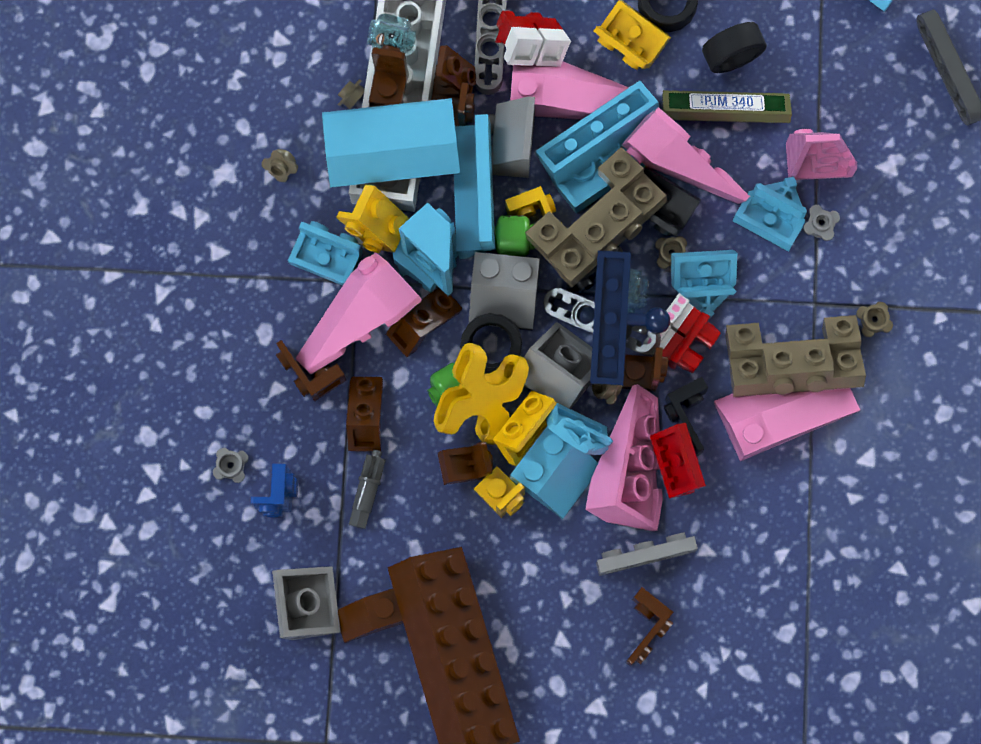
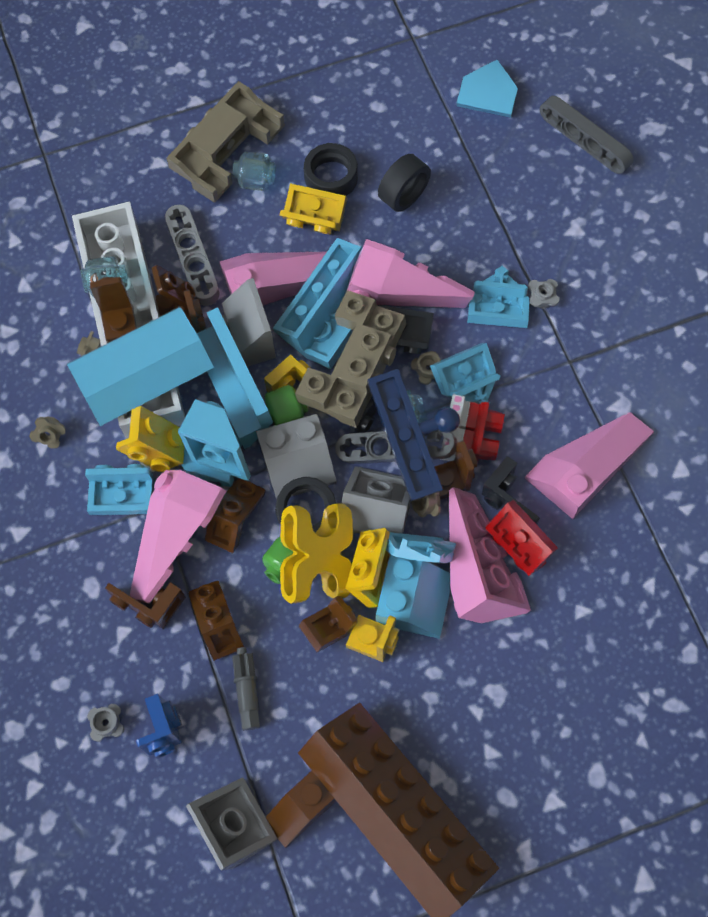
camera: 25 degrees left, 10 degrees down
(532, 39) = (230, 240): white hips -> none
(646, 553) = (531, 635): light grey plate -> none
(650, 607) = (557, 684): reddish brown bracket -> none
(727, 106) = (428, 229): tile -> none
(795, 365) = (581, 415): dark tan bracket -> none
(818, 156) = (517, 232): bright pink wedge -> none
(878, 310) = (633, 346): dark tan plate -> none

